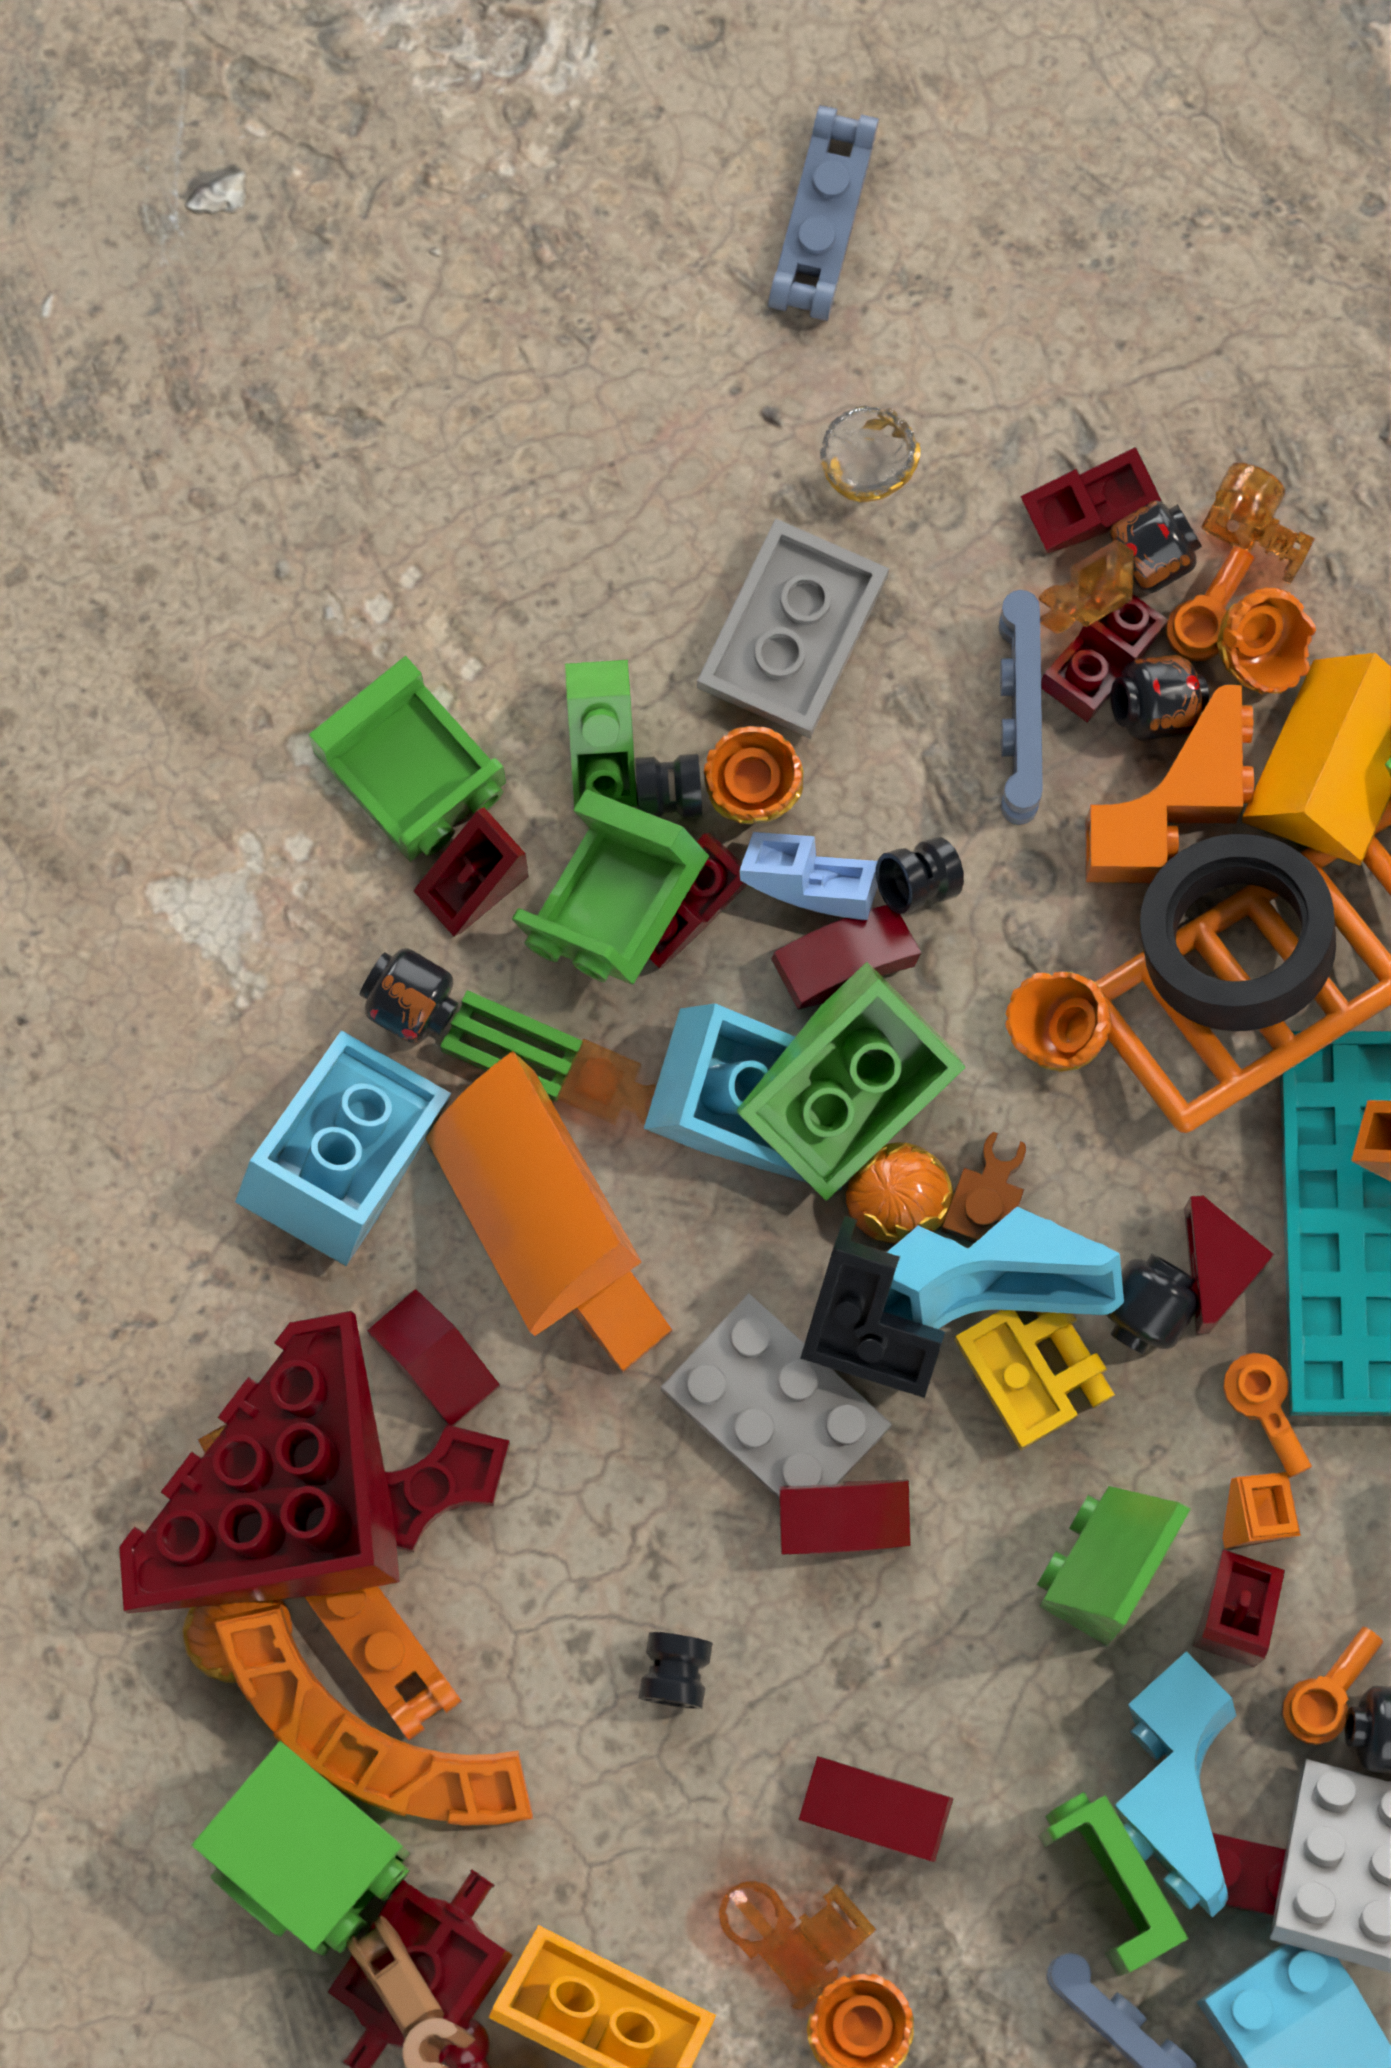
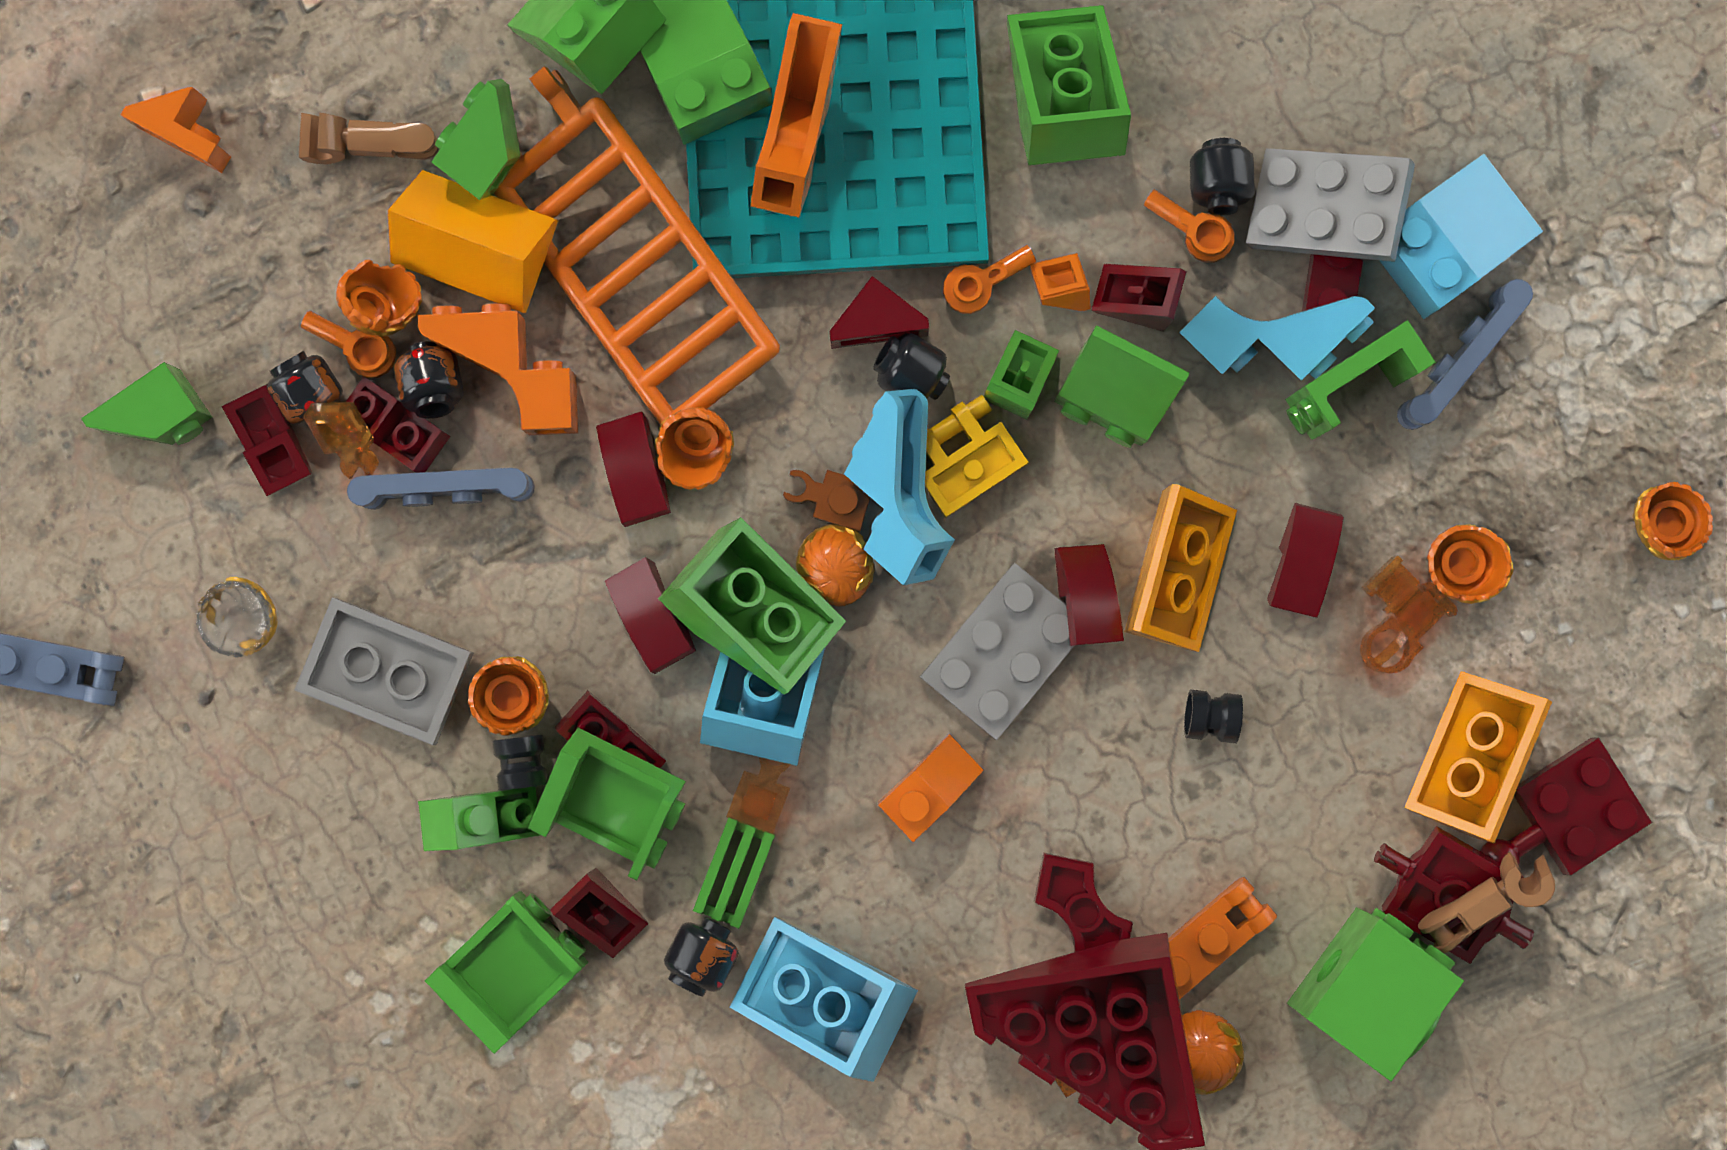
camera: 90 degrees left, 10 degrees up
(351, 1752) = (1291, 959): orange tile -> none
(434, 1357) = (983, 917): dark red slope -> none
(530, 1194) = (859, 851): orange slope -> none
(791, 872) = (586, 659): light blue slope -> none
(853, 1331) = (954, 592): black panel -> none
(872, 1642) = (1181, 568): none -> light orange slope
(918, 875) = (584, 563): black wheel -> none
(1035, 941) = (632, 469): none -> dark red slope
(1136, 367) = (153, 408): none -> bright green slope
(1140, 1446) = (1021, 374): none -> bright green slope
(1226, 862) = (561, 320): black tyre -> none
(1252, 500) = (265, 309): clear orange piece -> none

